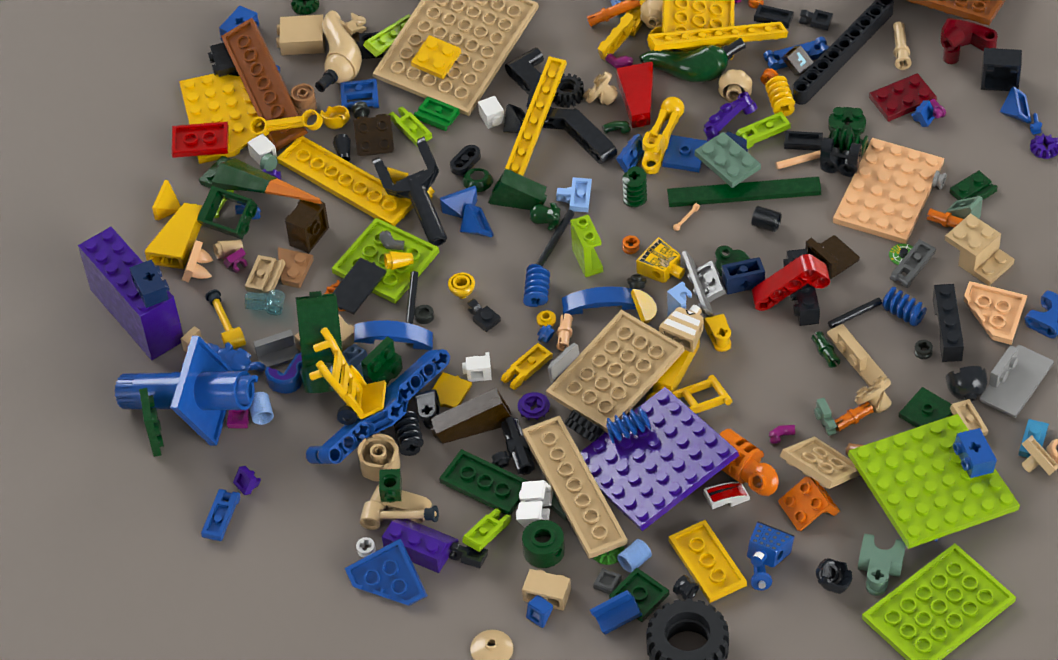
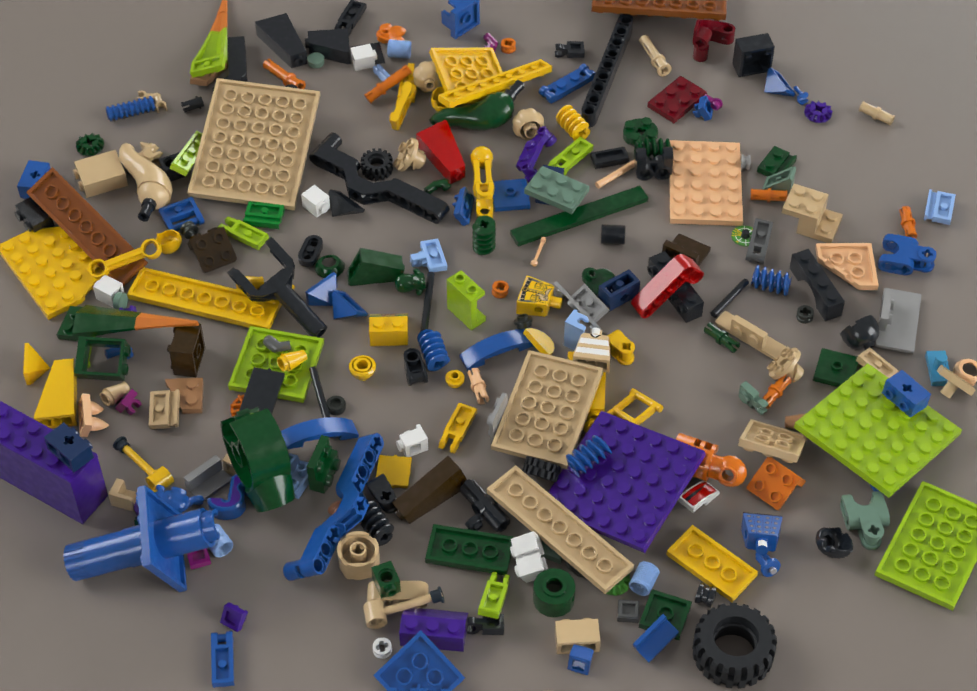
camera: 25 degrees left, 0 degrees up
(151, 422) = (116, 585): dark green plate -> none
(200, 139) = (43, 296): red tile -> none
(270, 302) = (181, 433): clear light blue piece -> none
(304, 98) = (131, 231): medium nougat wheel -> none
(342, 146) = (186, 267): black cone -> none
(369, 397) = (319, 502): yellow hand -> none
(436, 57) = (243, 162): yellow plate -> none
(485, 317) = (395, 392): black plate -> none
(504, 255) = (388, 329): none -> yellow slope
(511, 297) = (415, 369): none -> black piece
(529, 400) = (488, 459): dark purple gear -> none
(536, 115) = (363, 193): yellow plate -> none
(545, 333) = (461, 392): blue plate -> none
(620, 61) = (412, 128): magenta arm -> none
(767, 75) = (550, 108): orange bush -> none
(769, 14) = (529, 55): black tile -> none
(781, 431) = (718, 422): magenta arm -> none
(797, 60) = (574, 88): brick -> none

